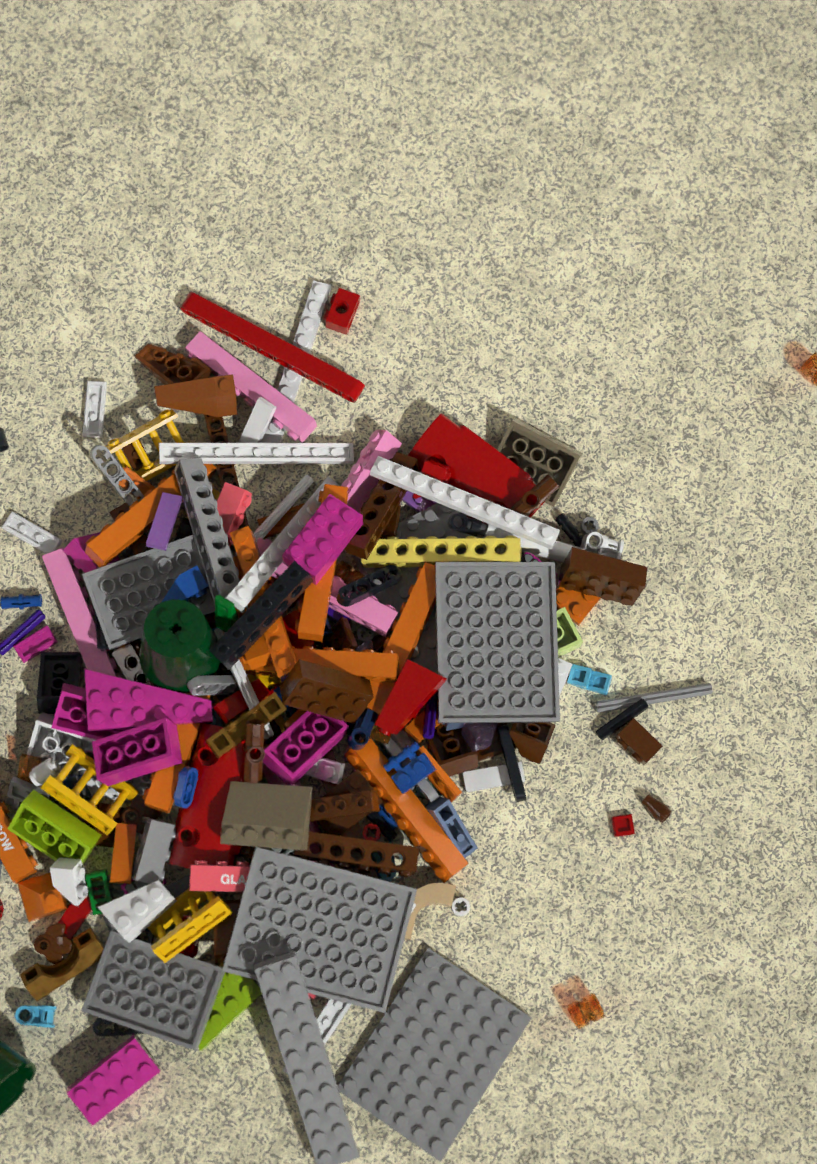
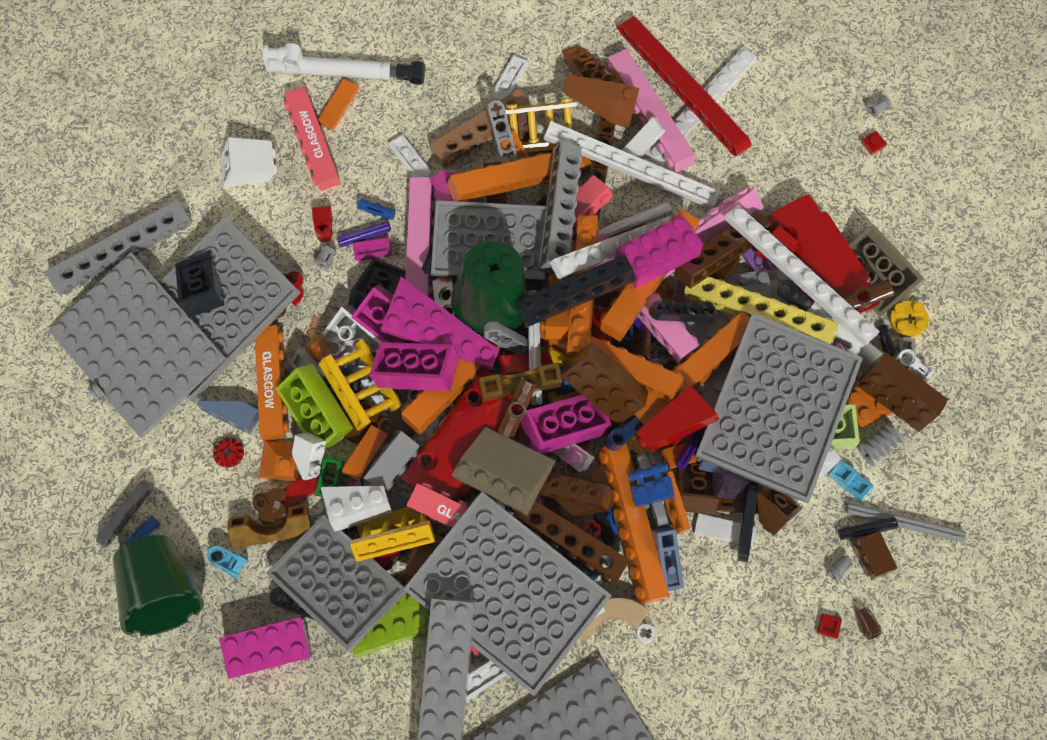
camera: 30 degrees right, 5 degrees down
(43, 771) = (334, 349): white brick -> none
(78, 479) = (470, 129): none -> medium nougat brick
(164, 521) = (526, 185): medium lavender tile -> none
(185, 787) = (443, 415): blue plate -> none
(188, 585) = (526, 244): blue slope -> none
(224, 613) = (544, 275): green slope -> none
(342, 321) = (752, 88): red brick -> none
(470, 290) = (878, 106): none -> light grey bush
(480, 331) = (873, 143): none -> red plate
(584, 487) = (902, 326): none -> yellow plate
(600, 633) = (879, 443): none -> light grey piece
(611, 767) = (837, 571): none -> light grey pin

